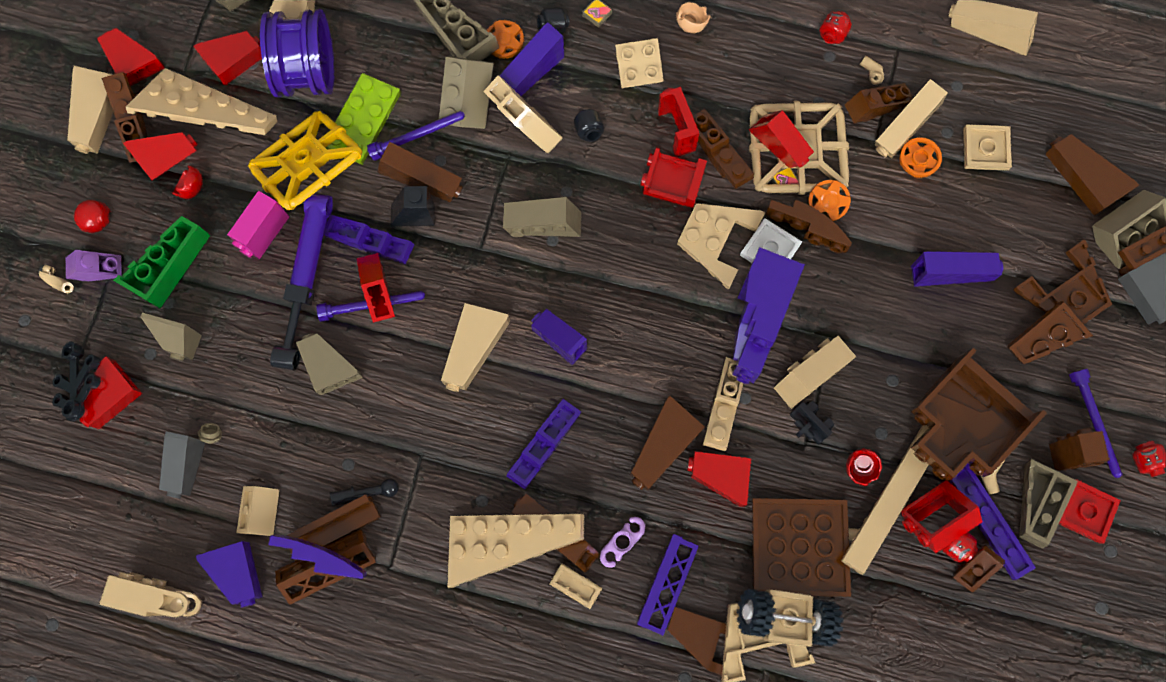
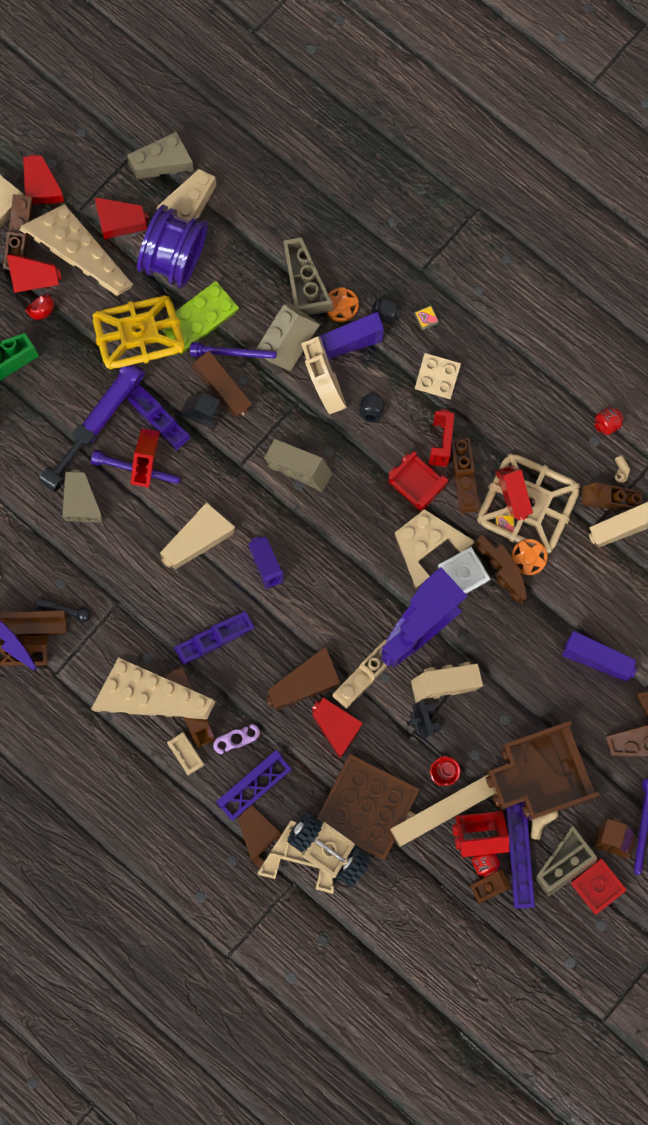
camera: 20 degrees right, 0 degrees up
(258, 225) = (78, 367): dark pink brick -> none
(692, 17) = (498, 358): light nougat hair -> none
(920, 157) = (621, 557): orange wheel -> none

